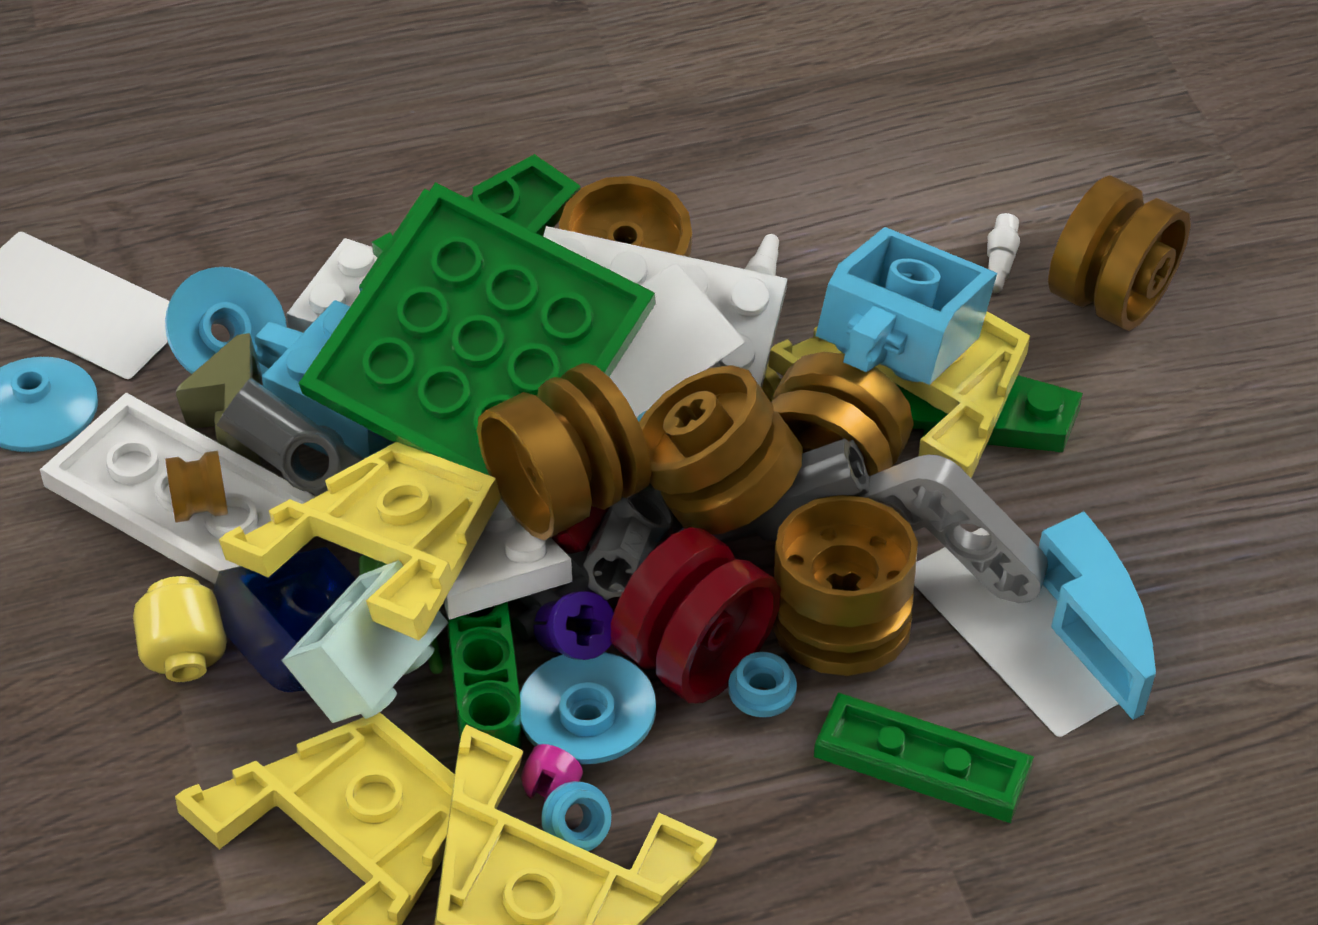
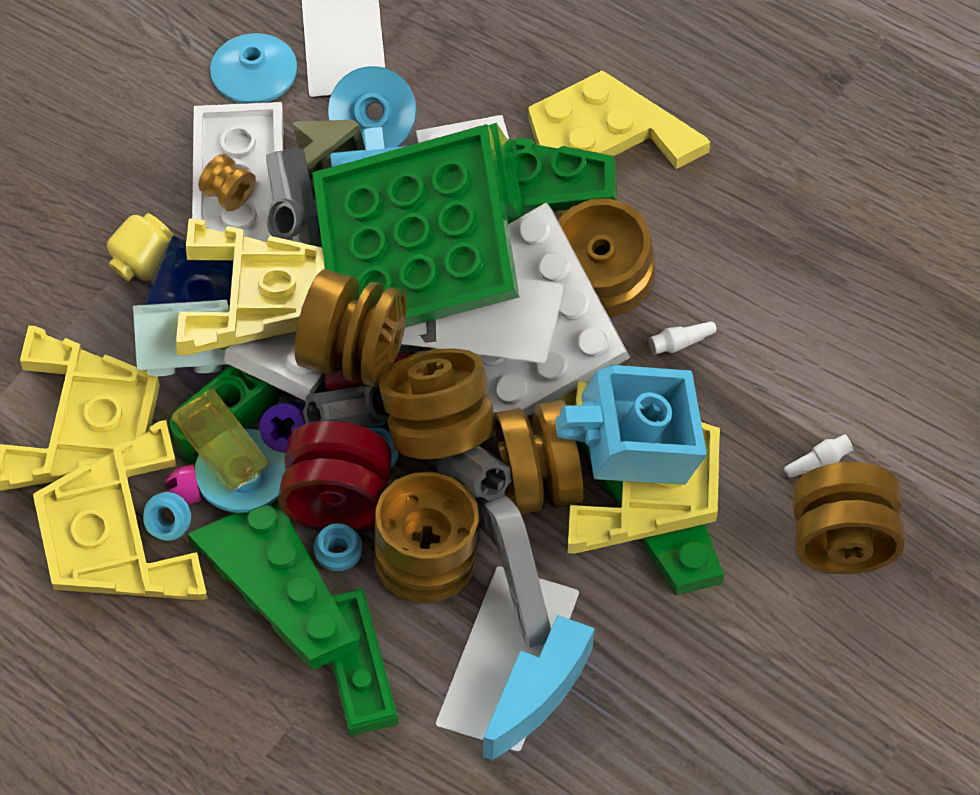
camera: 55 degrees right, 10 degrees up
(445, 155) = (609, 119): none -> light yellow wing
(547, 688) = (221, 440): none -> clear yellow tile
(762, 759) = (278, 579): none -> green wing

